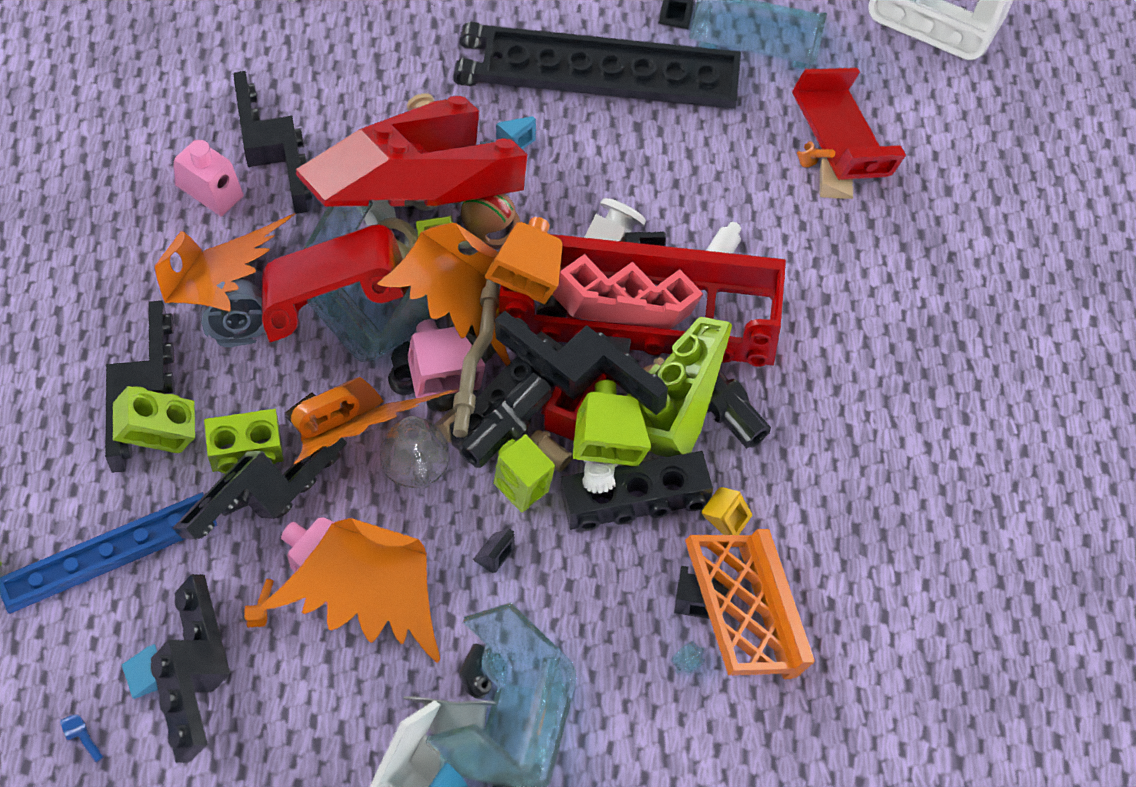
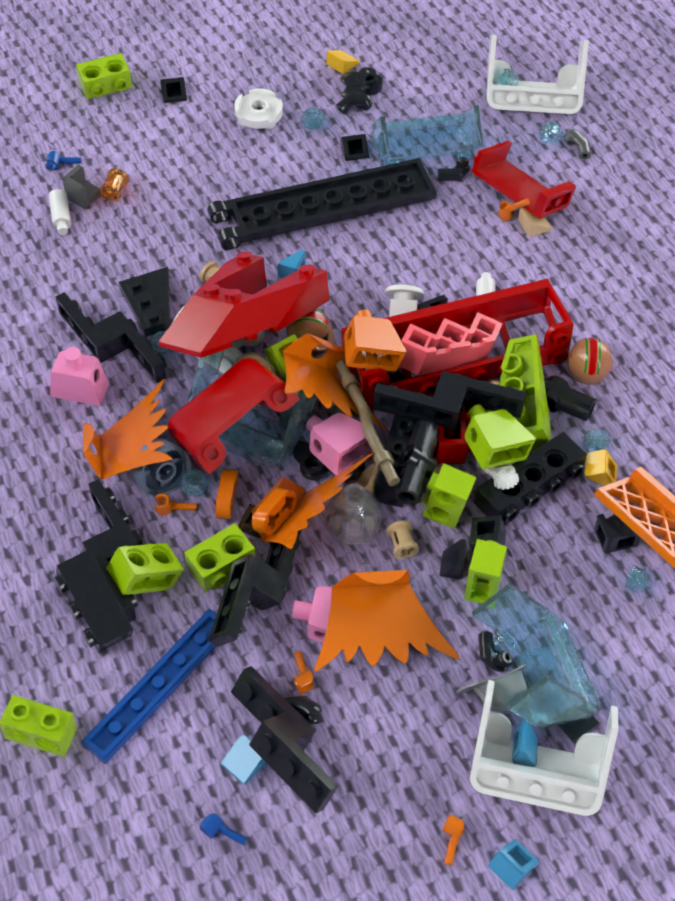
camera: 25 degrees left, 5 degrees down
(80, 434) = (92, 601): none -> black wedge
(227, 360) = (169, 506): none -> orange hand
(240, 644) = (307, 707): none -> black arm
(257, 348) = (191, 477): none -> clear light blue plate
(292, 371) = (226, 494): none -> orange beam
(337, 111) = (149, 300): none -> black wing
(451, 502) = (402, 539): none -> tan bush
(512, 575) = (485, 571): none -> lime brick
(544, 540) = (487, 529): none -> black brick
(743, 476) = (596, 440): none -> clear light blue plate
(777, 85) = (455, 173): none -> black arm
(791, 378) = (589, 361): none -> nougat helmet
(925, 72) = (545, 132): none -> clear light blue plate
(950, 91) = (581, 142): none -> dark grey arm

